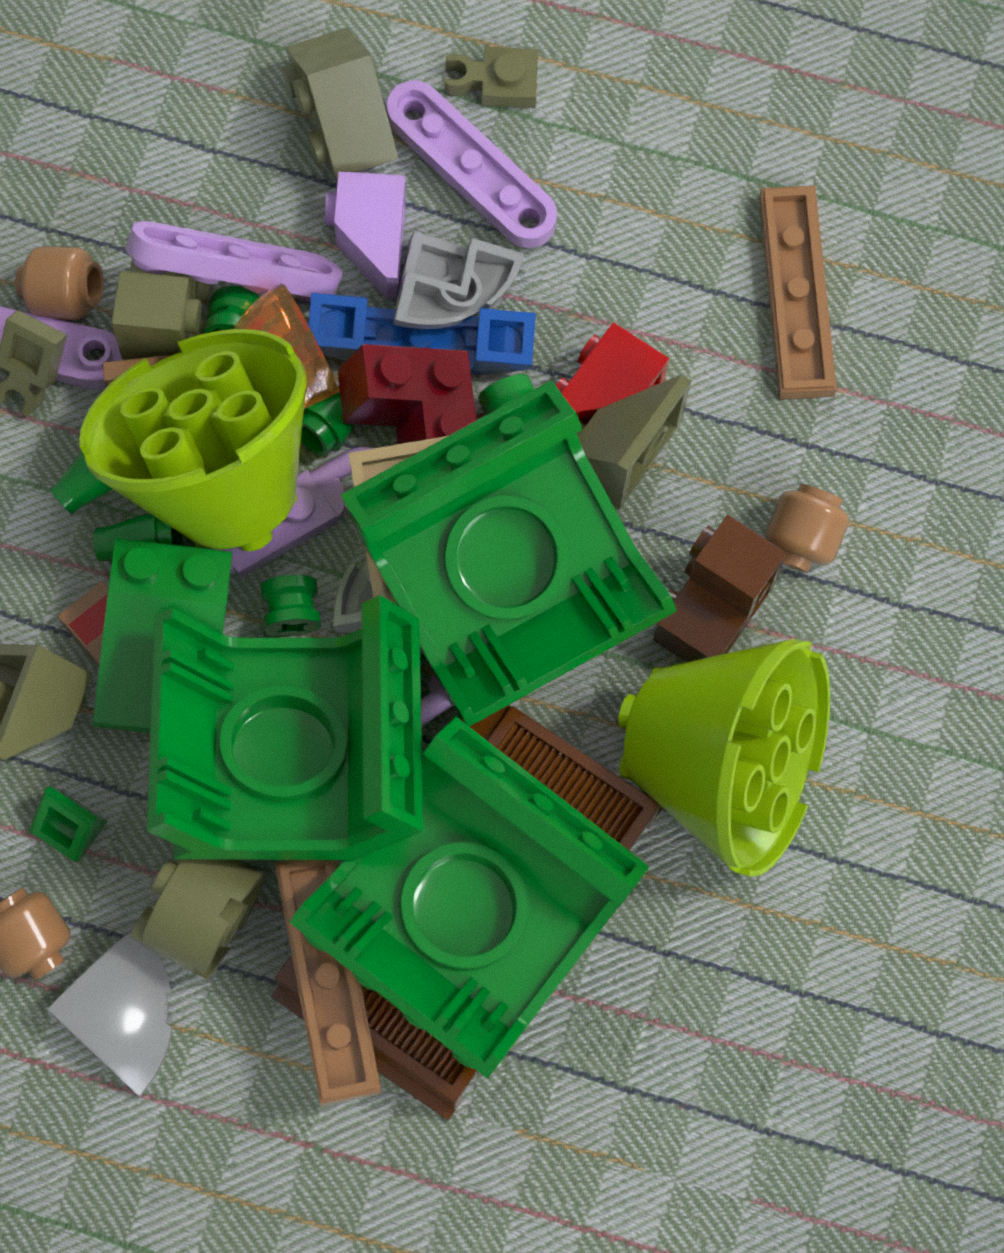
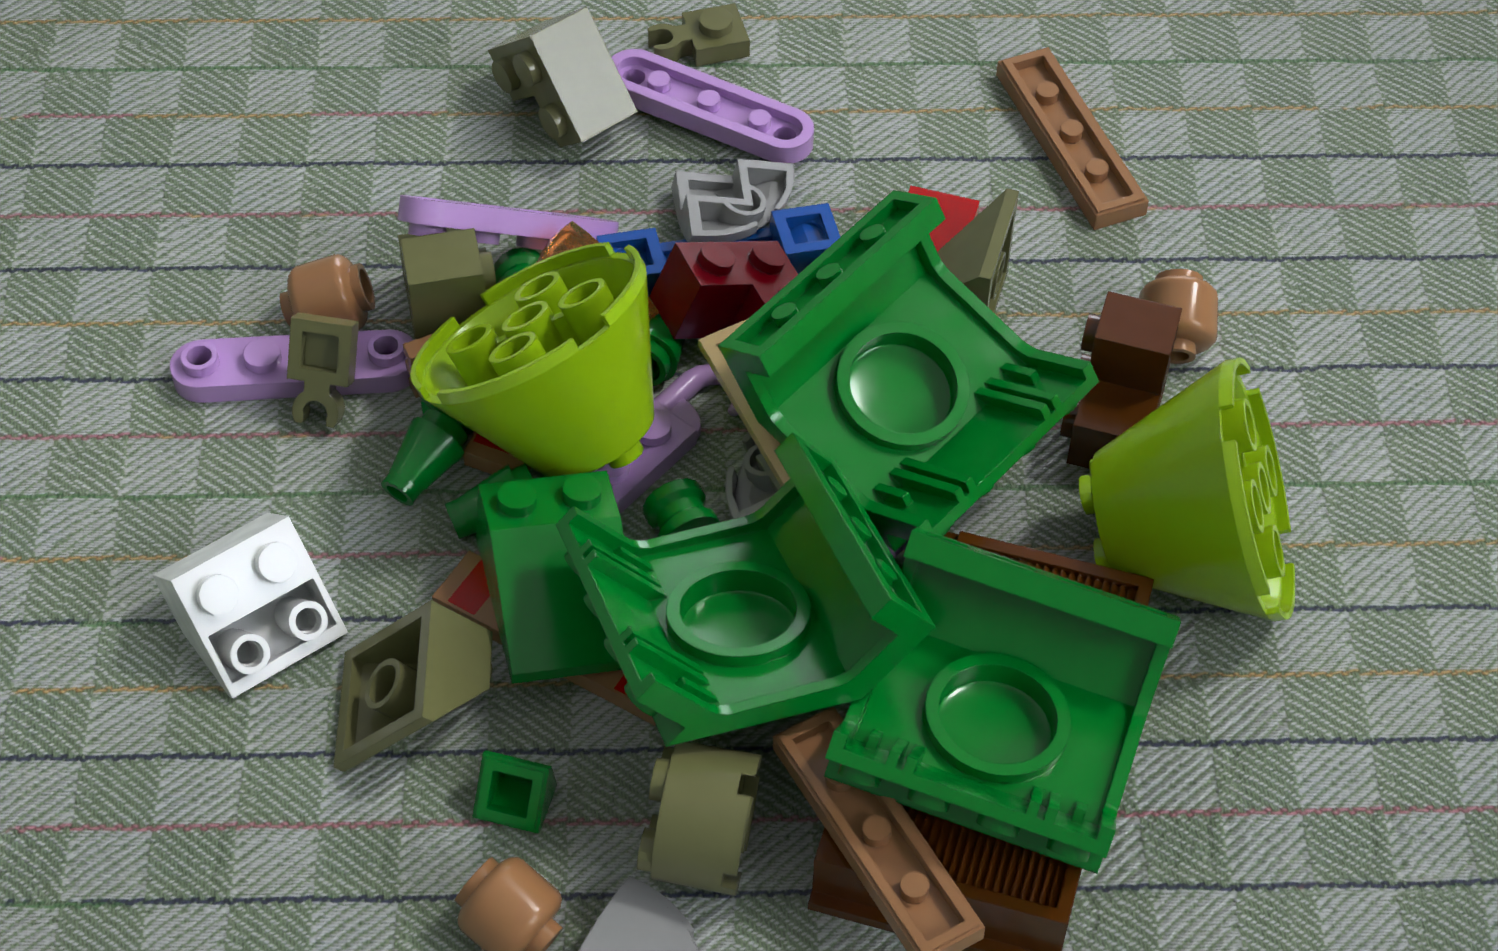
camera: 15 degrees left, 20 degrees down
(370, 225) = (631, 176): lavender slope -> none

